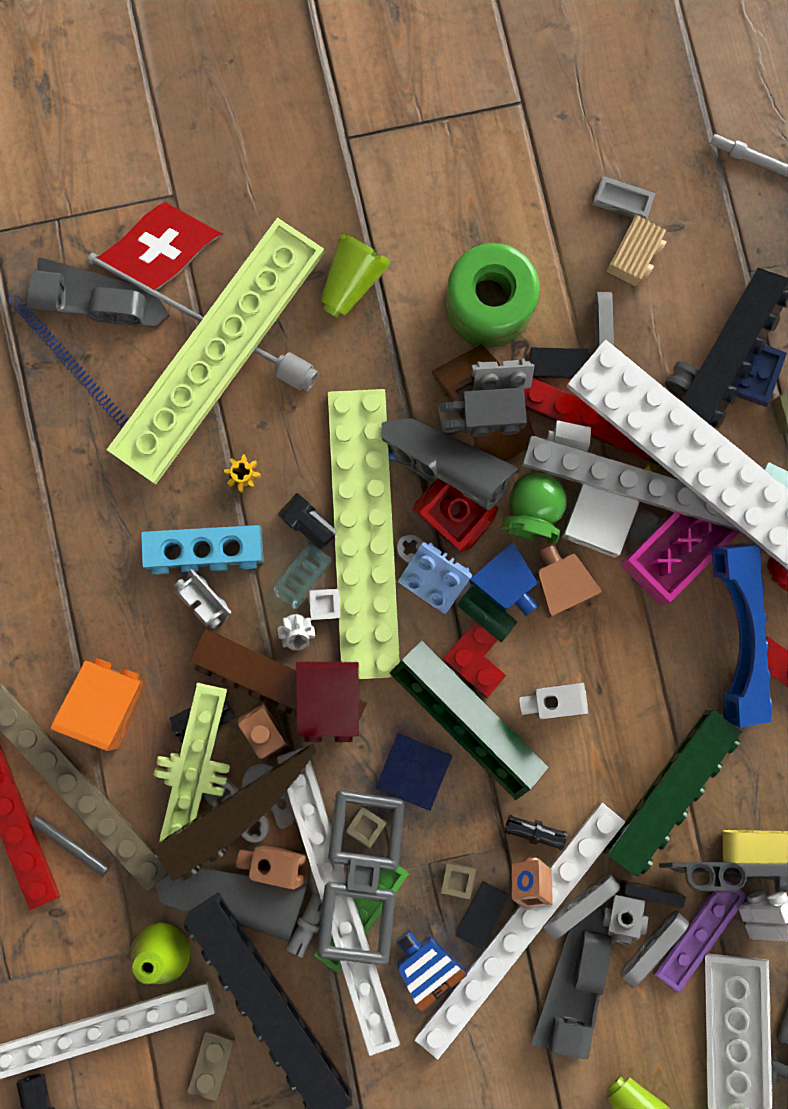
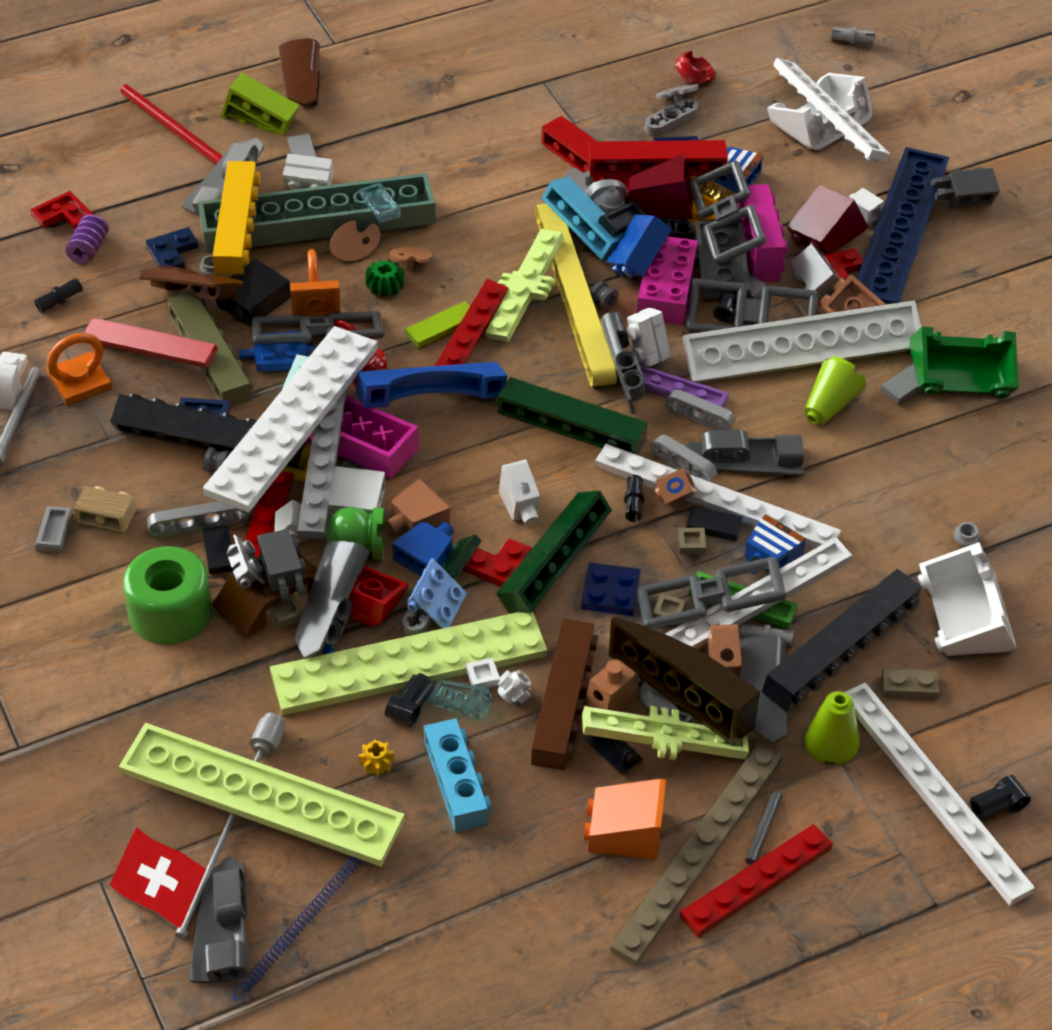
camera: 100 degrees left, 35 degrees down
(212, 609) = (503, 763): light grey hinge -> none
(327, 700) = (566, 632): dark red slope -> none
(351, 275) = (164, 704): lime cone -> none
(632, 911) = (684, 426): light grey brick -> none
(652, 893) = (657, 414): black tile -> none

